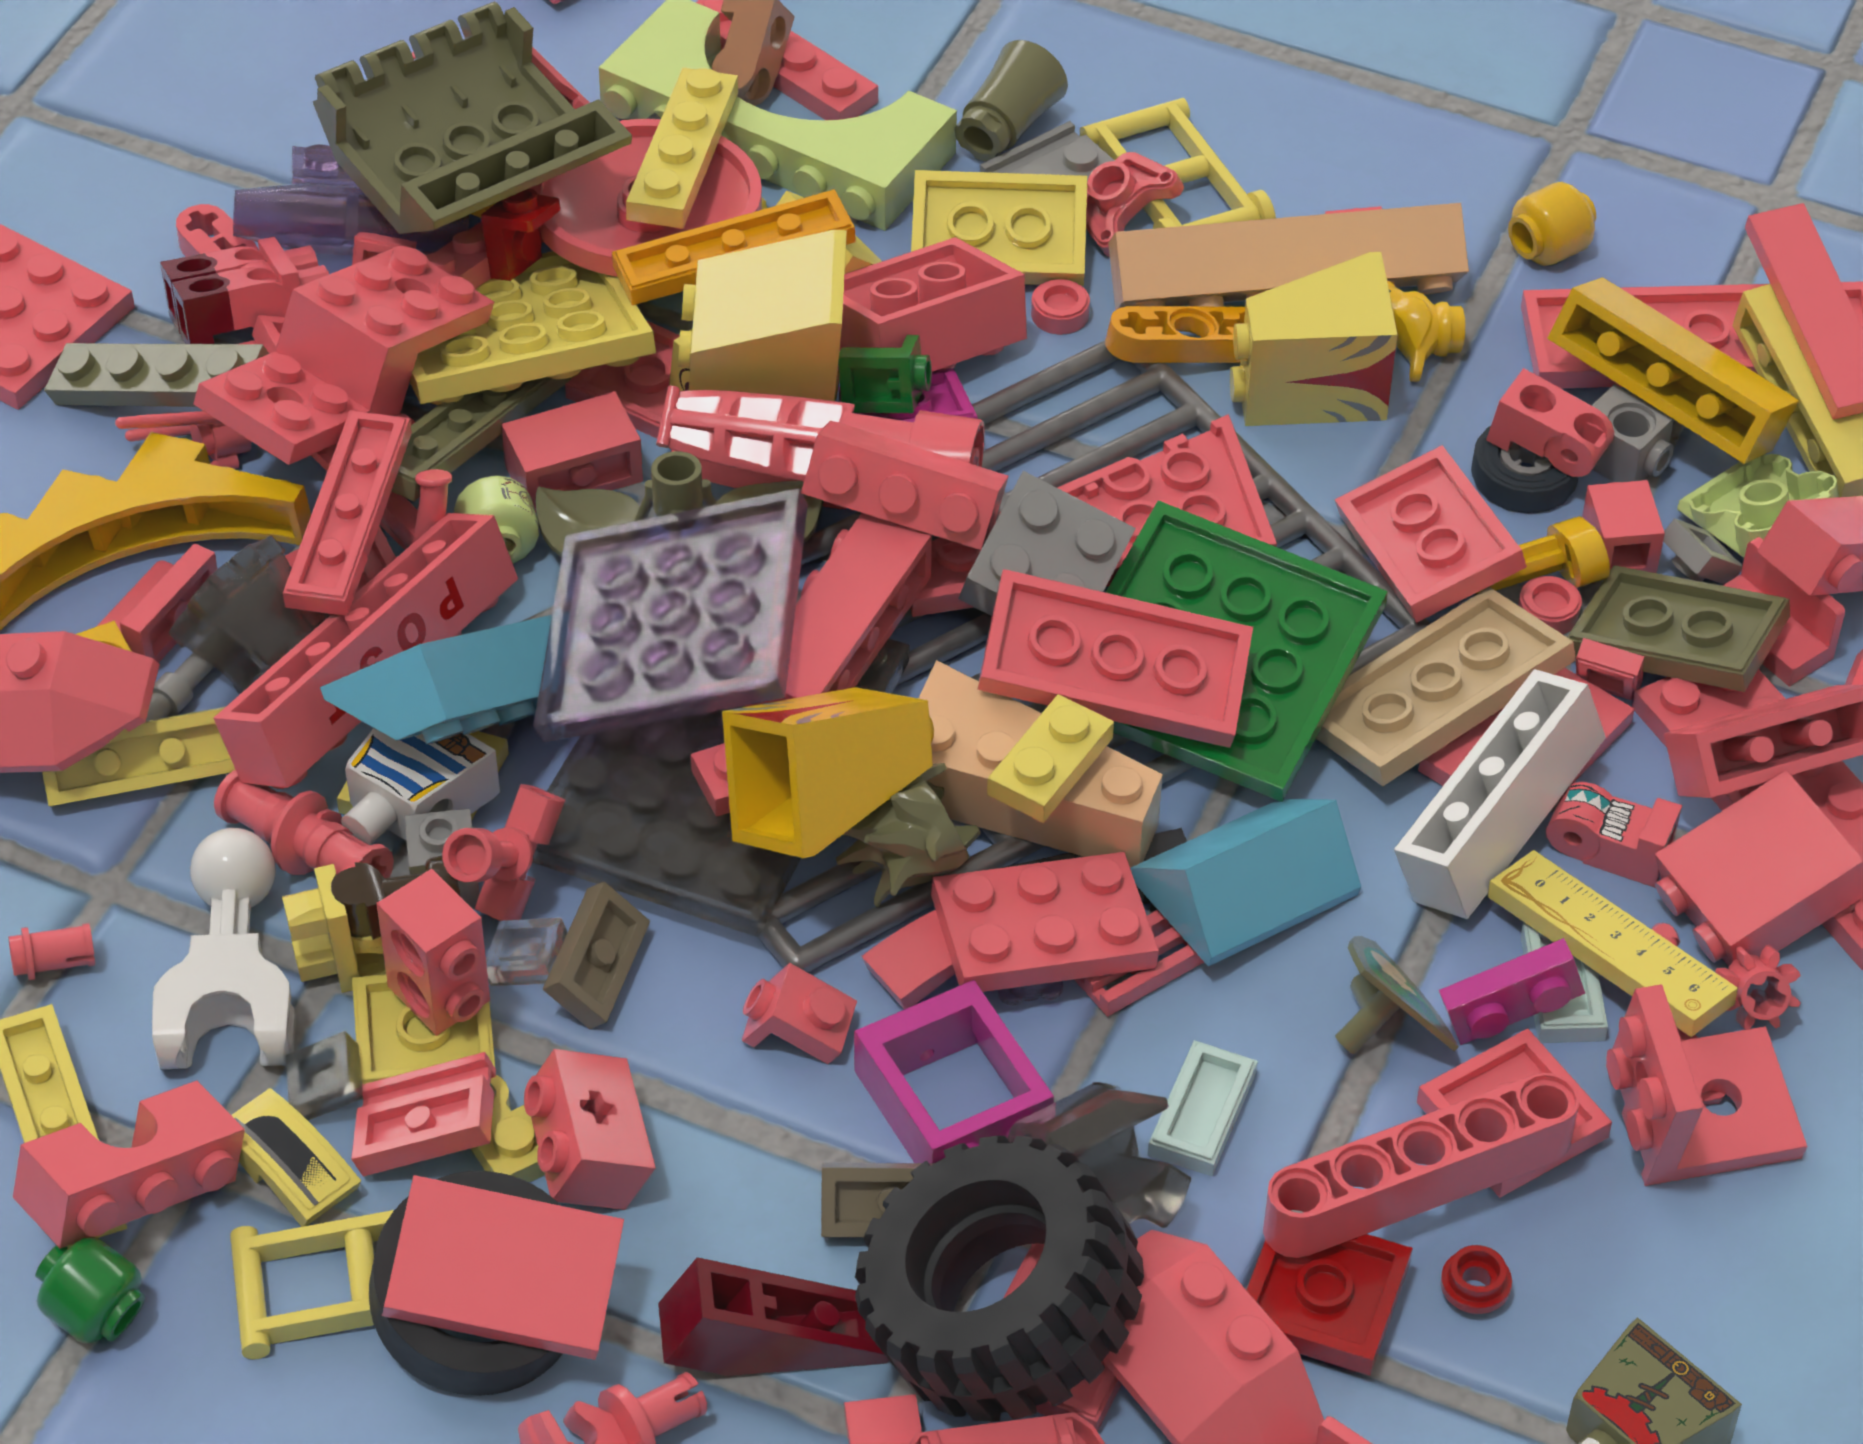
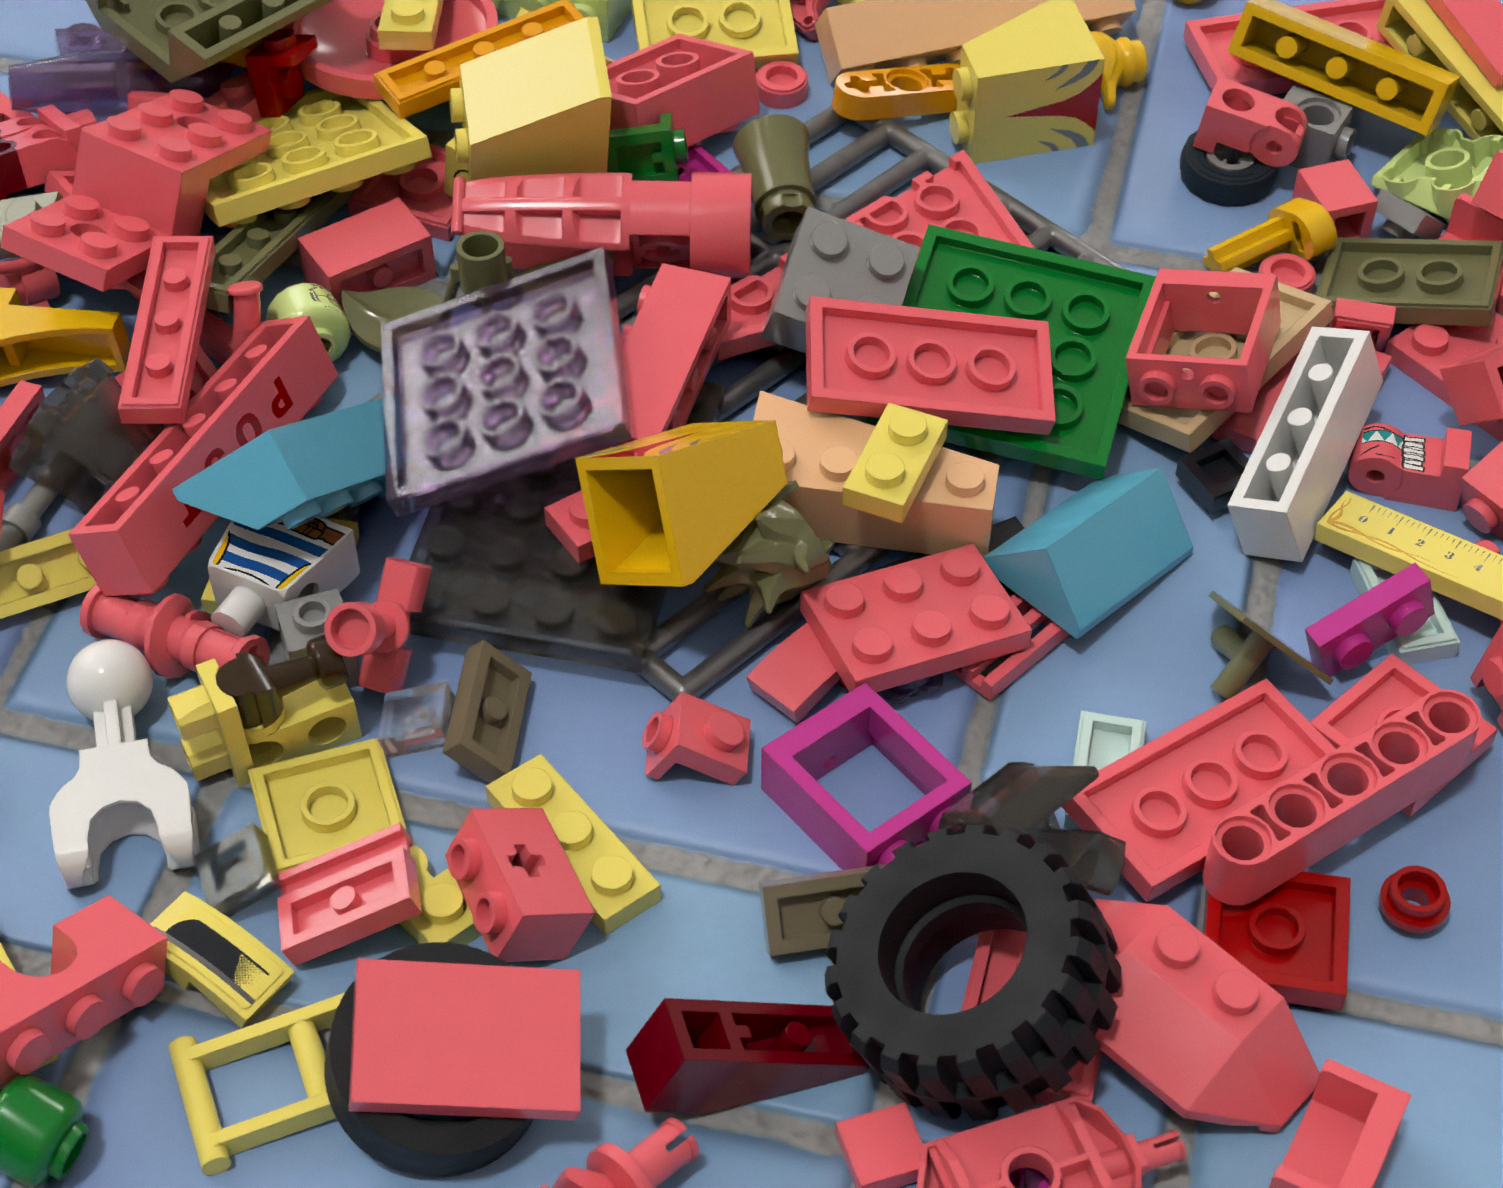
camera: 10 degrees left, 0 degrees up
(434, 952) = (330, 730): coral brick -> none
(676, 1124) = (605, 867): none -> light yellow plate
(904, 484) = (696, 236): coral brick -> none
(1021, 414) = (778, 157): none -> olive plant
(1251, 1131) = (1185, 781): none -> coral plate
(1398, 806) = (1212, 473): none -> black plate
(1408, 620) = (1183, 303): none -> coral window
(1430, 533) = (1168, 222): coral plate -> none

